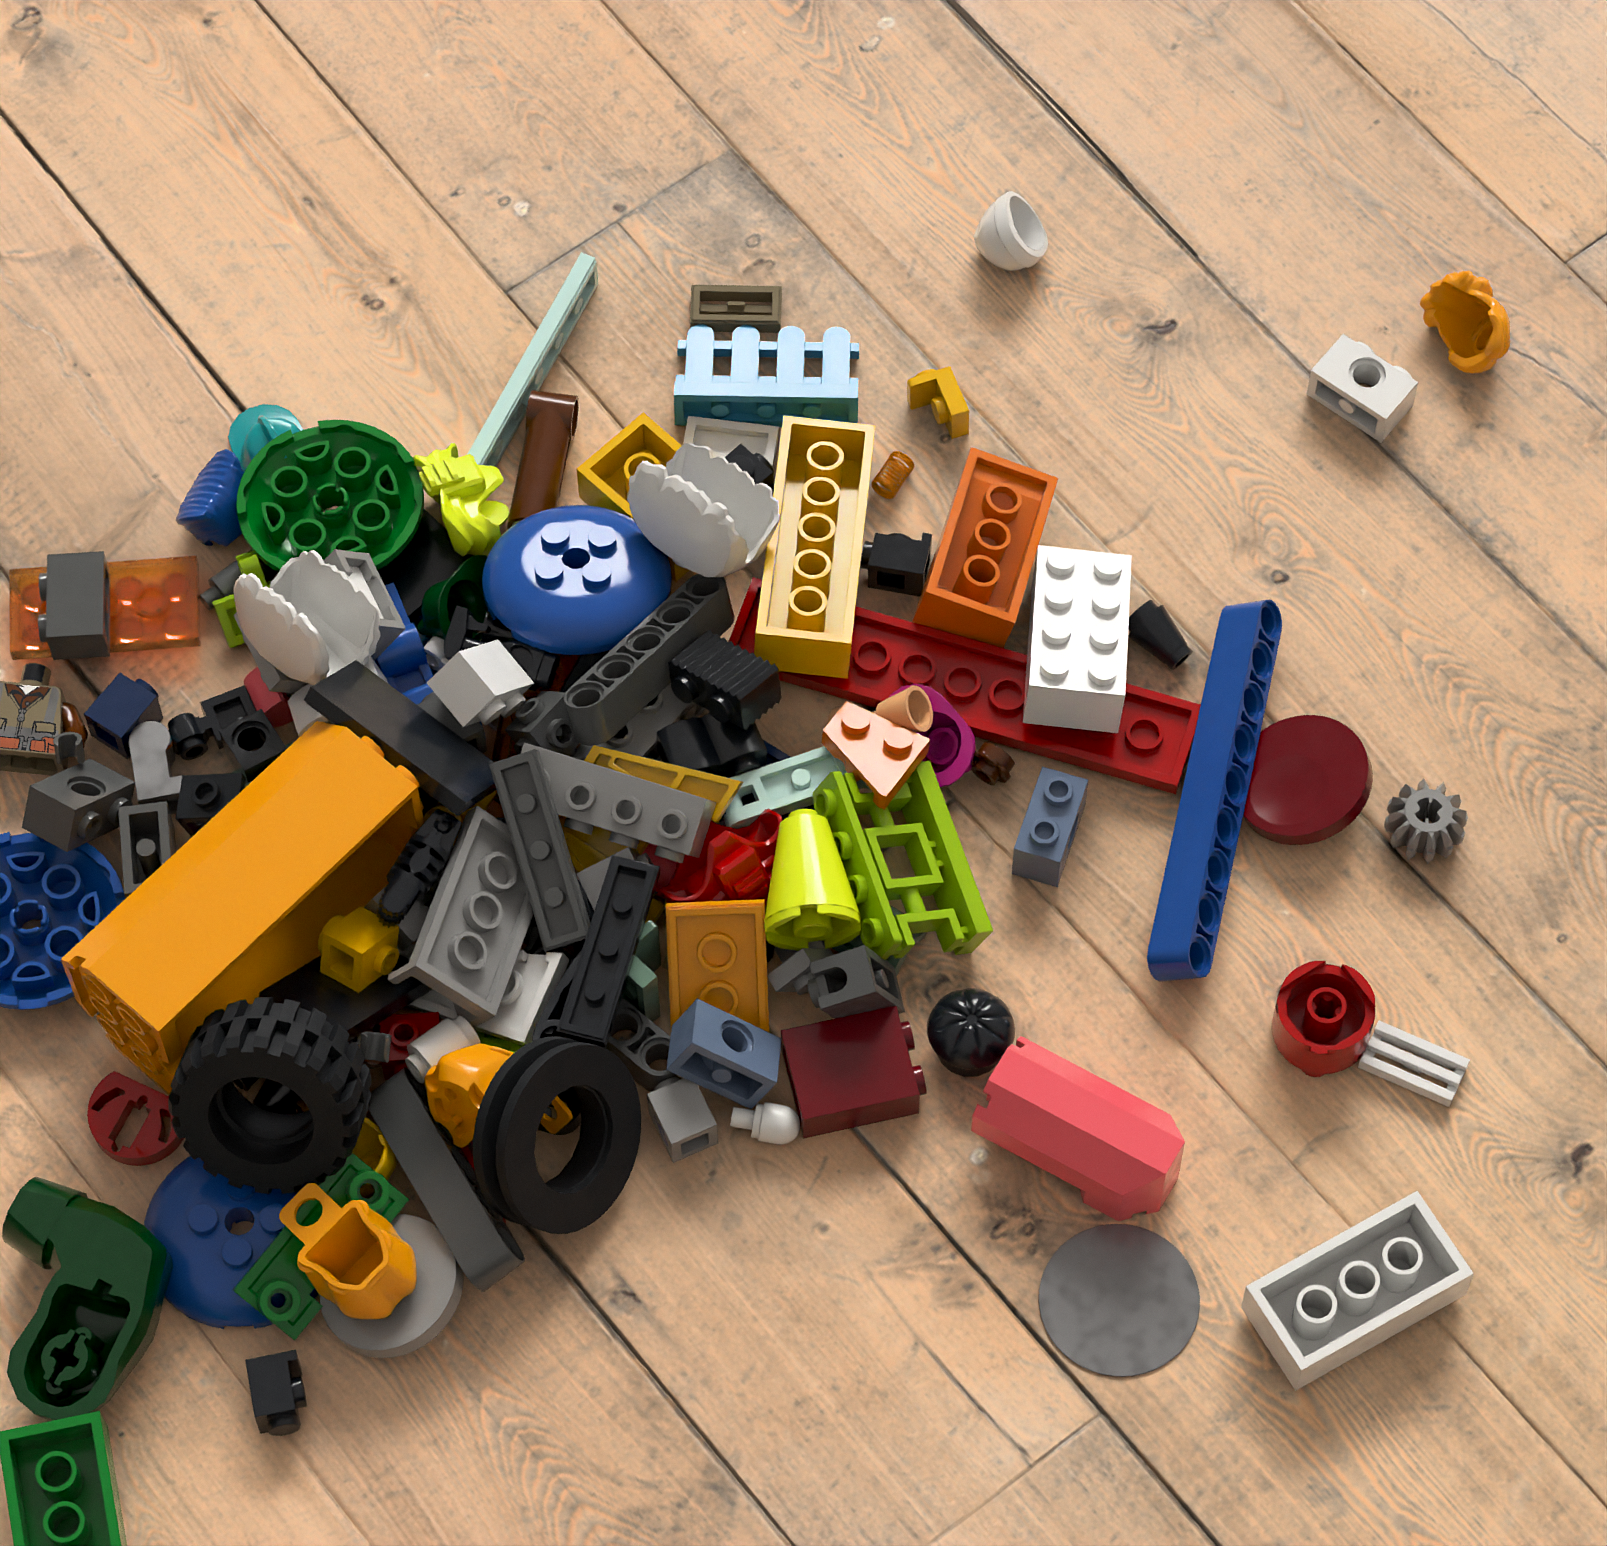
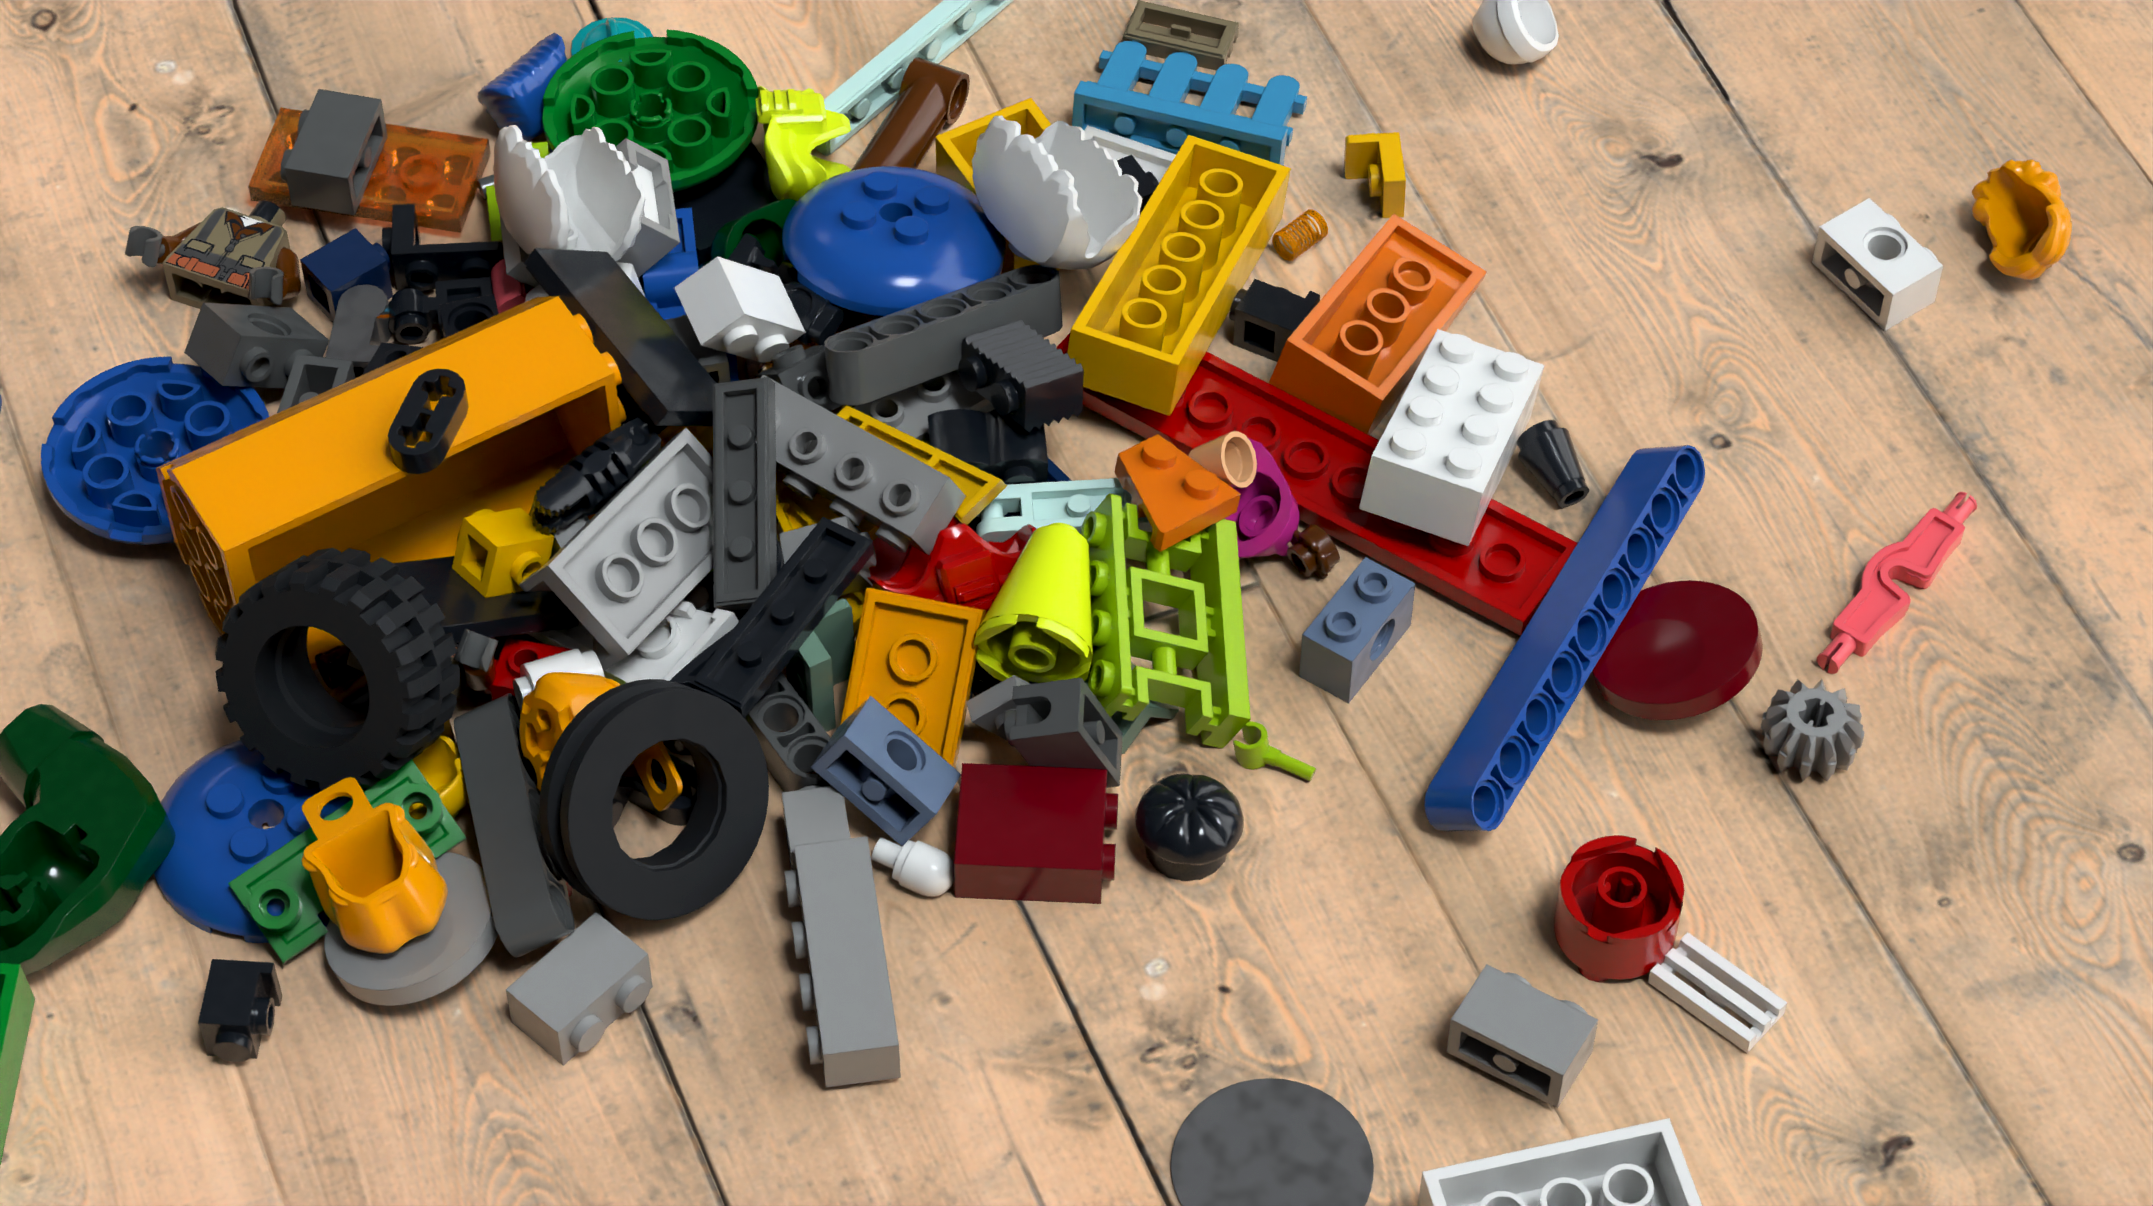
camera: 15 degrees right, 10 degrees down
(106, 1124) = (170, 672): red piece -> none
(193, 686) = (422, 265): none -> black bracket
(274, 871) = (416, 416): none -> black beam
(541, 1301) = (580, 989): none -> light grey brick
(742, 1222) = (846, 962): none -> light grey brick
(1007, 951) = (1261, 753): none -> lime hand
(1081, 1130) = (1281, 957): coral brick -> none
(1281, 1143) = (1522, 1035): none -> light grey brick
(1443, 689) = (1879, 599): none -> coral piece

